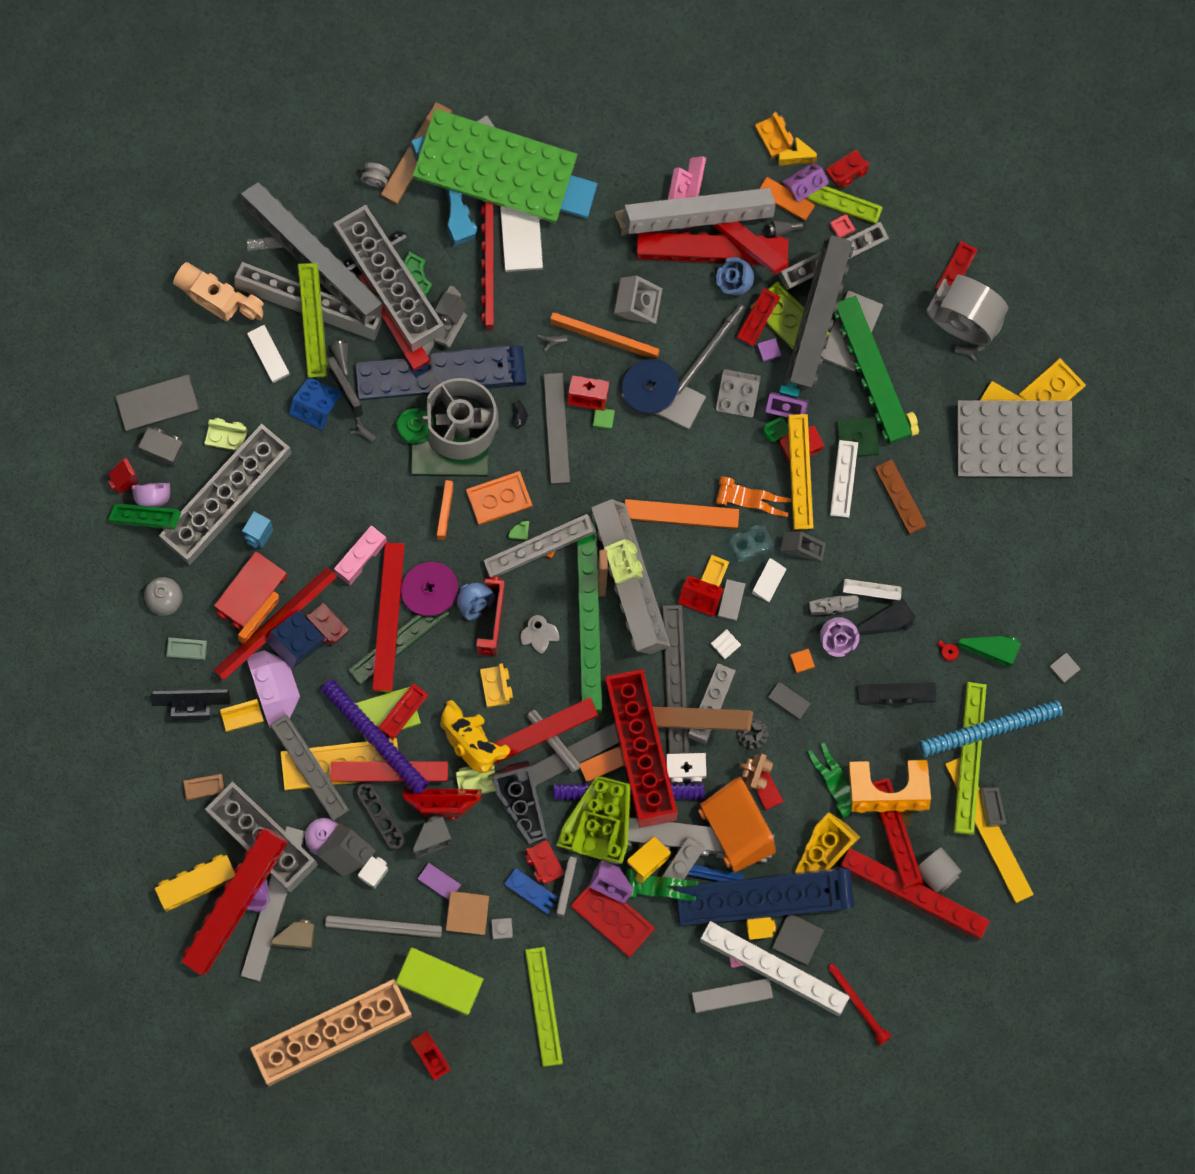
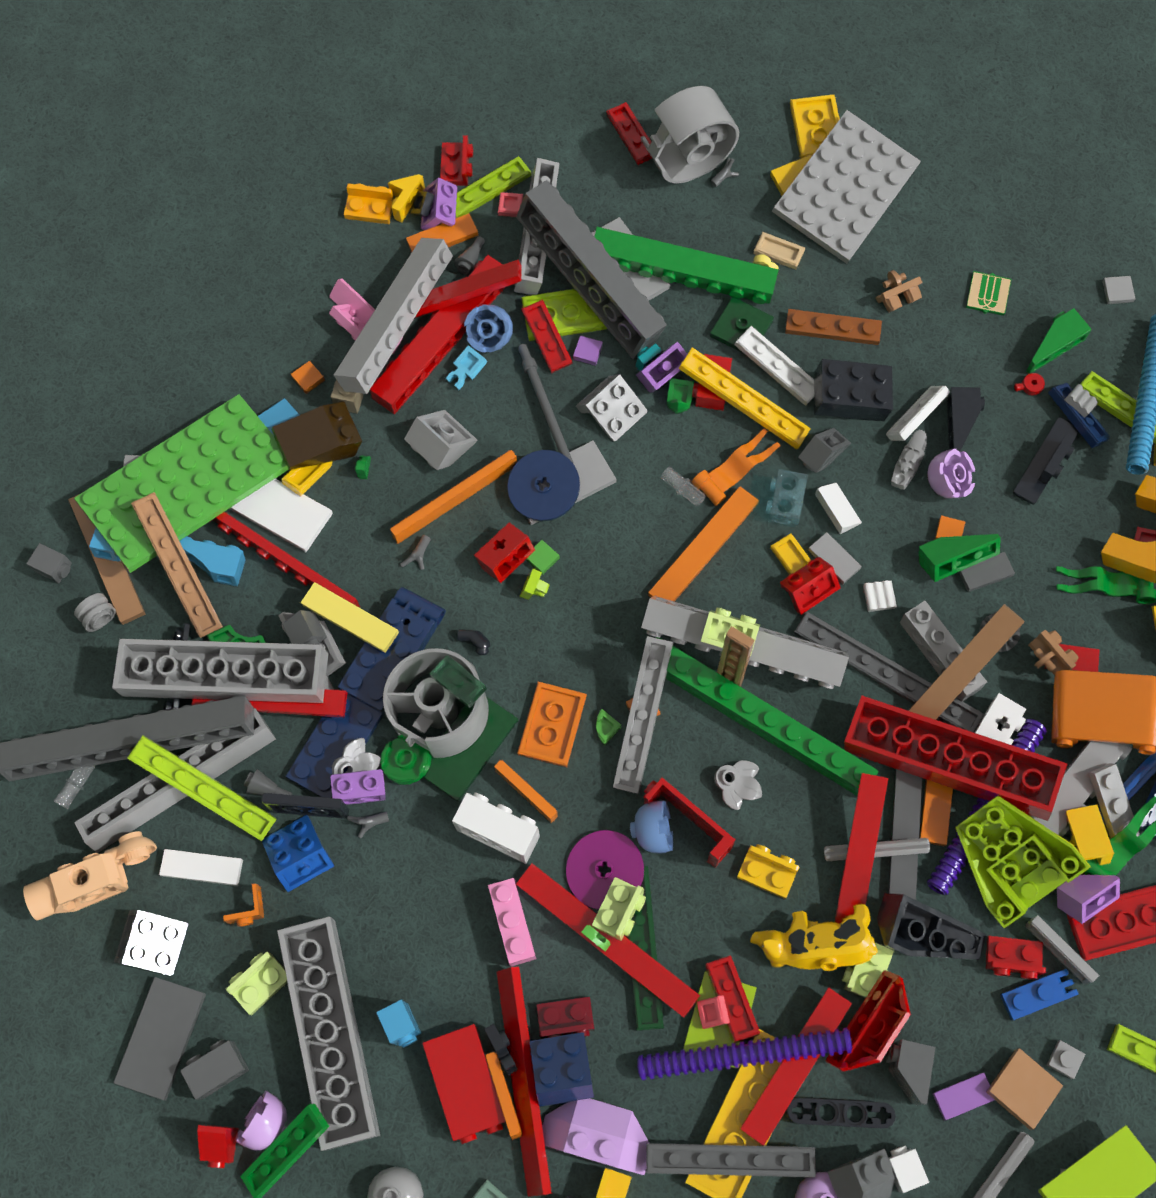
camera: 50 degrees left, 5 degrees down
(206, 357) = (151, 942): none -> bracket
(256, 401) = (247, 918): none -> orange bracket
(286, 595) = (500, 1042): none -> black plate
(377, 409) = (358, 787): none -> medium lavender bracket
(383, 608) = (596, 937): none -> bright green tile
(387, 123) = (49, 563): none -> dark grey brick
(387, 704) = (713, 1012): none -> coral tile
(393, 399) = (355, 758): none -> light grey plate
(410, 507) = (496, 827): none -> white brick
(410, 610) = (618, 909): none -> yellowish green bracket
(436, 202) = (176, 564): none -> medium nougat tile
(477, 329) = (349, 617): none -> light yellow tile
(477, 420) = (458, 681): none -> clear green plate
(556, 429) = (518, 612): dark grey tile -> none
(557, 233) = (302, 478): none -> yellow tile
(580, 426) = (534, 585): none -> lime tile
(582, 223) = (318, 436): none -> dark brown slope
(584, 266) = (362, 466): none -> green tile
(623, 186) = (307, 377): none -> orange tile
(702, 281) = (467, 364): none -> medium azure plate
(713, 473) = (683, 486): none -> clear axle
(783, 671) = (953, 554): none -> green slope
(798, 170) = (422, 204): none -> tile
(857, 537) = (853, 390): none -> black brick
(934, 425) = (779, 250): none -> tan tile
(945, 694) = (1088, 426): none -> dark blue tile
(955, 689) = (1081, 400): none -> light grey piece
(963, 528) = (909, 289): none -> medium nougat hips
(1001, 583) = (988, 293): none -> piece

